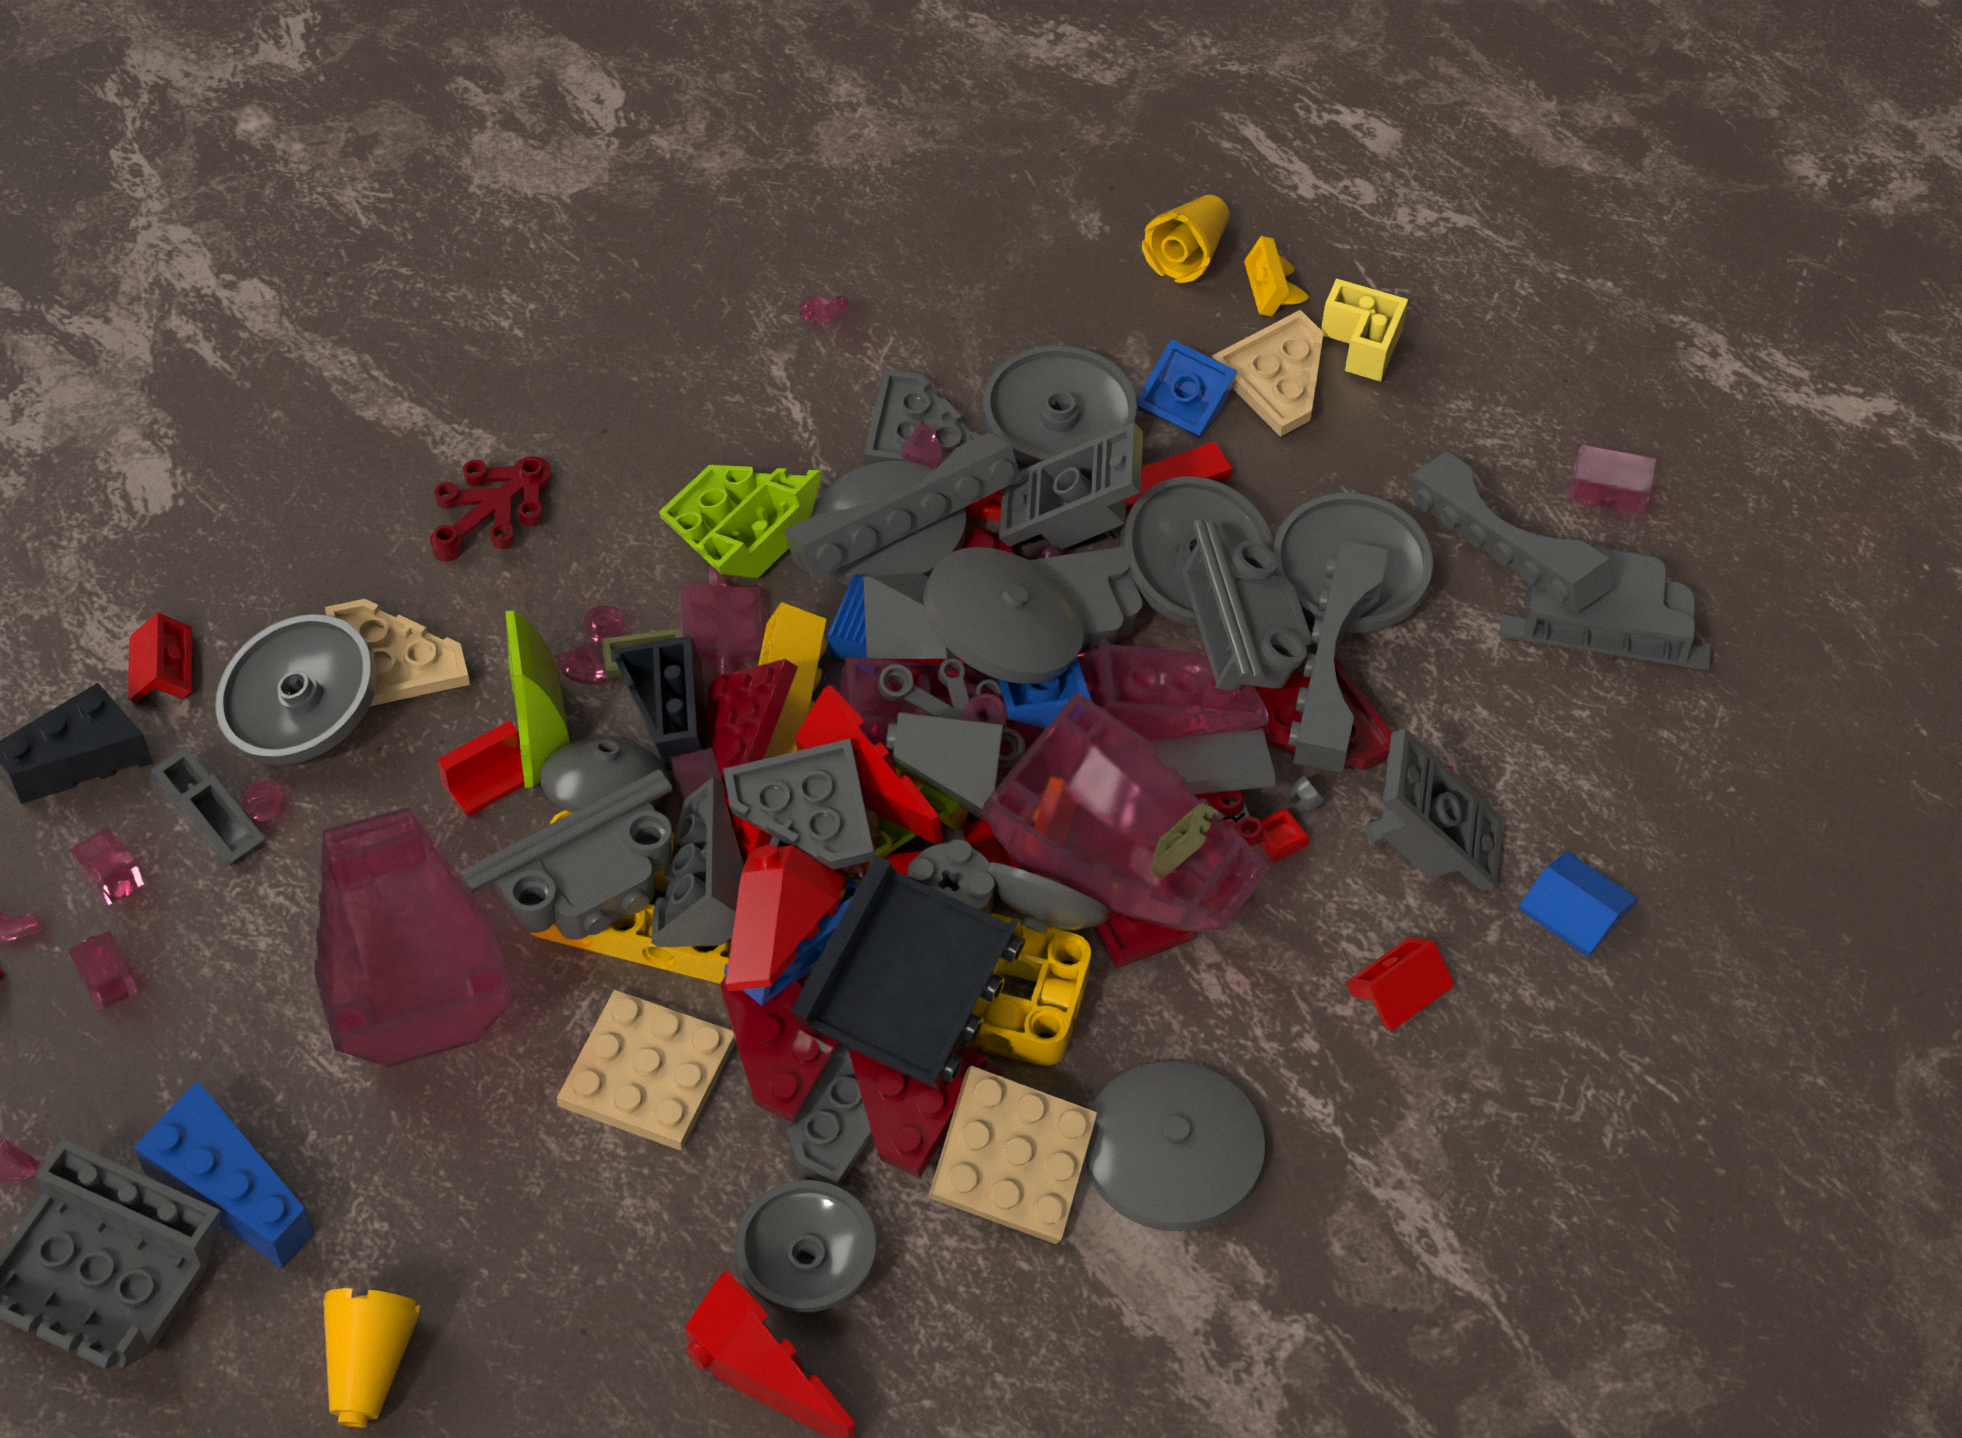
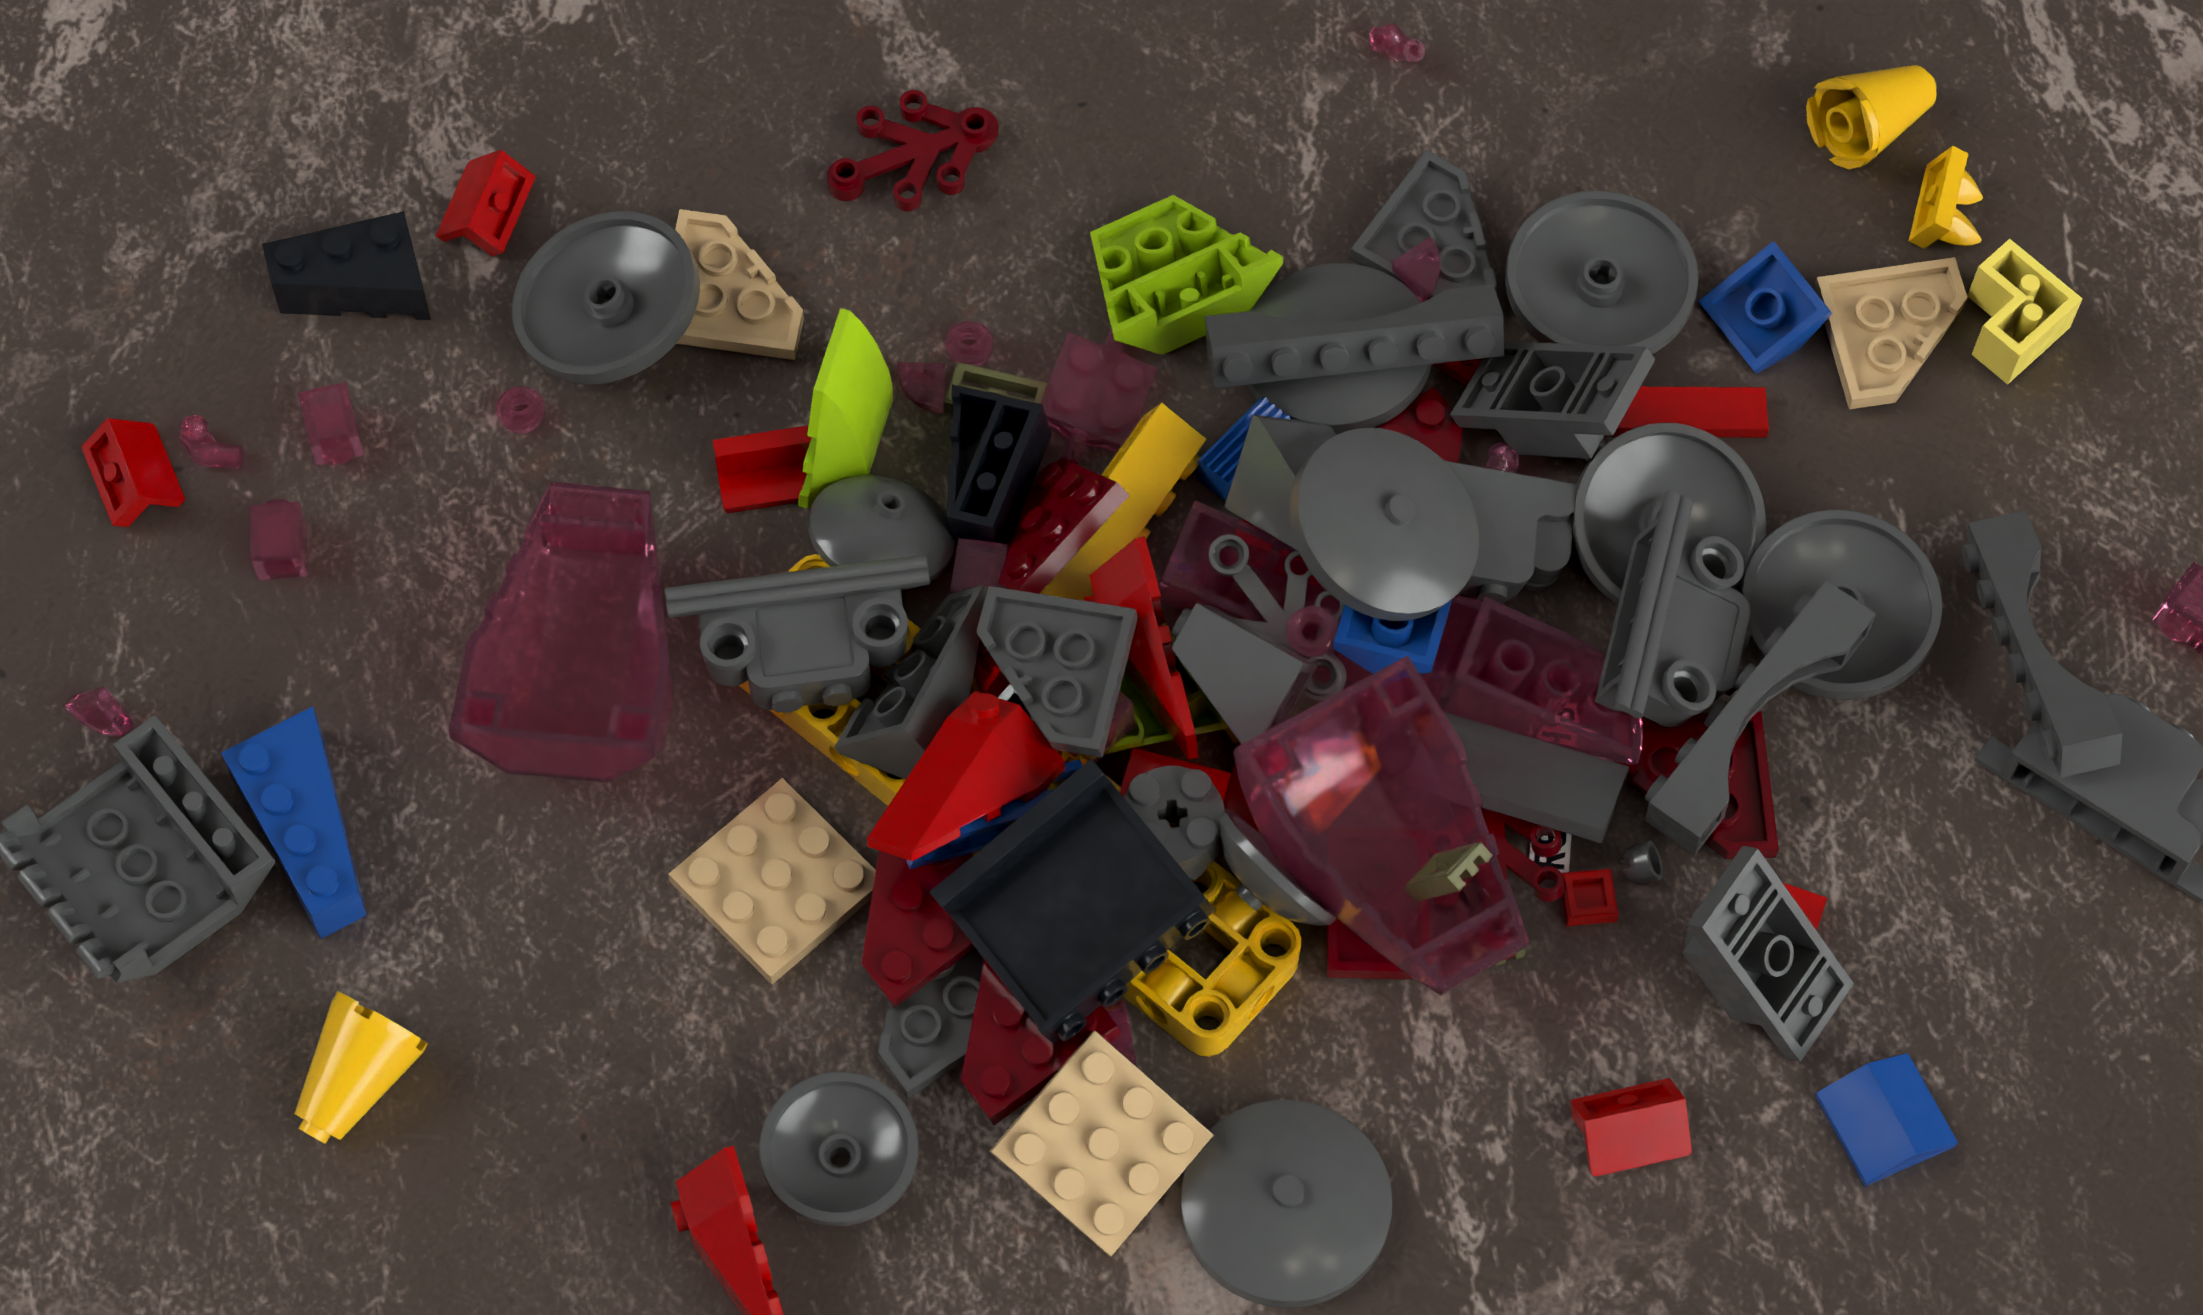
camera: 25 degrees right, 10 degrees up
(206, 806) = (460, 395): dark grey slope -> none

